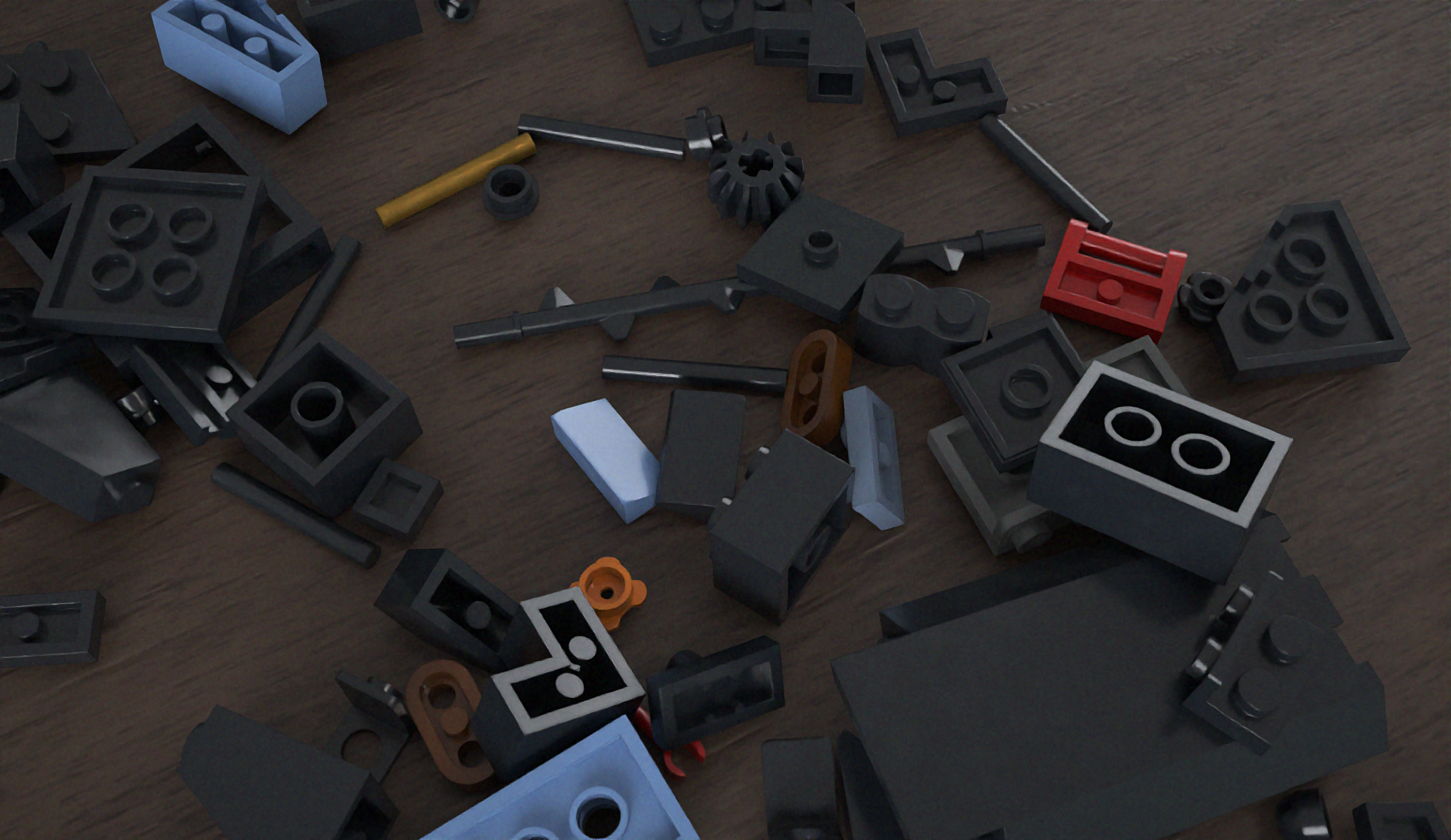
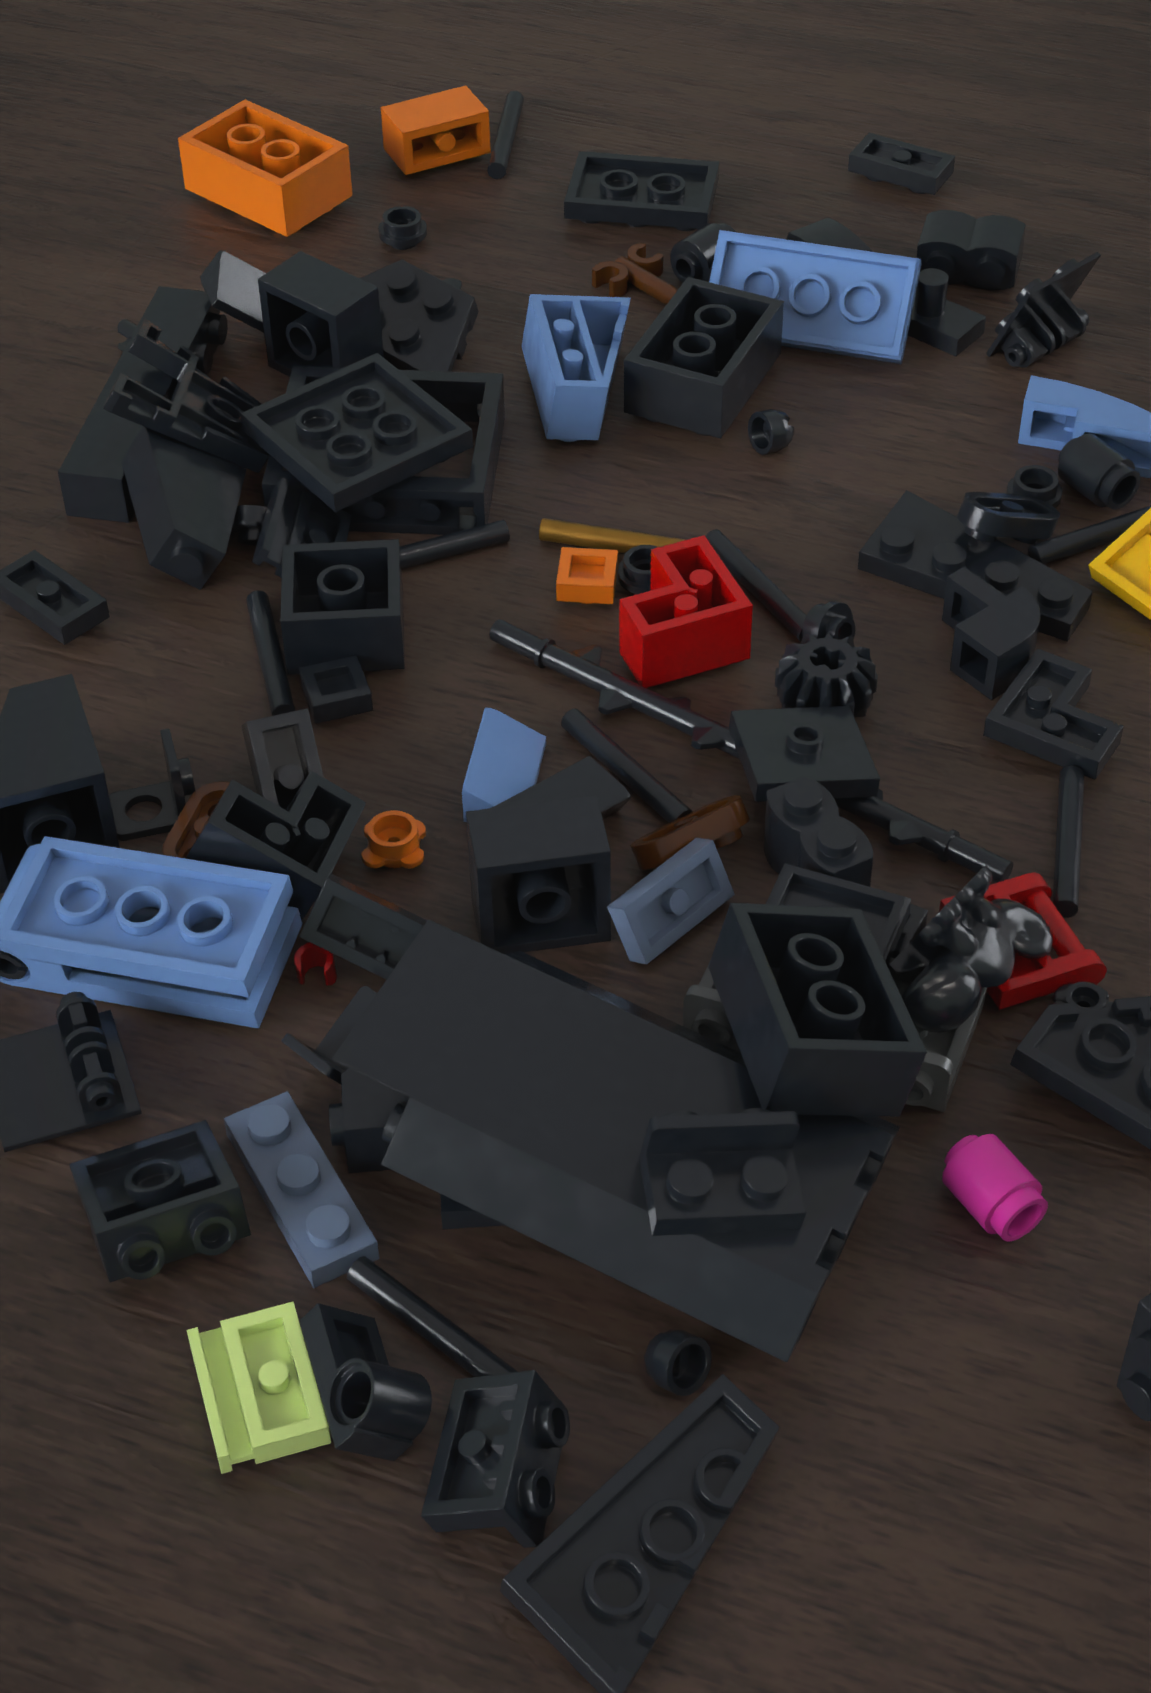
camera: 45 degrees right, 15 degrees down
(473, 232) = (587, 575): none -> orange plate
(609, 202) = (688, 619): none -> red brick
(1124, 320) = (965, 950): none -> black animal
(1327, 485) = (994, 1186): none -> dark pink brick

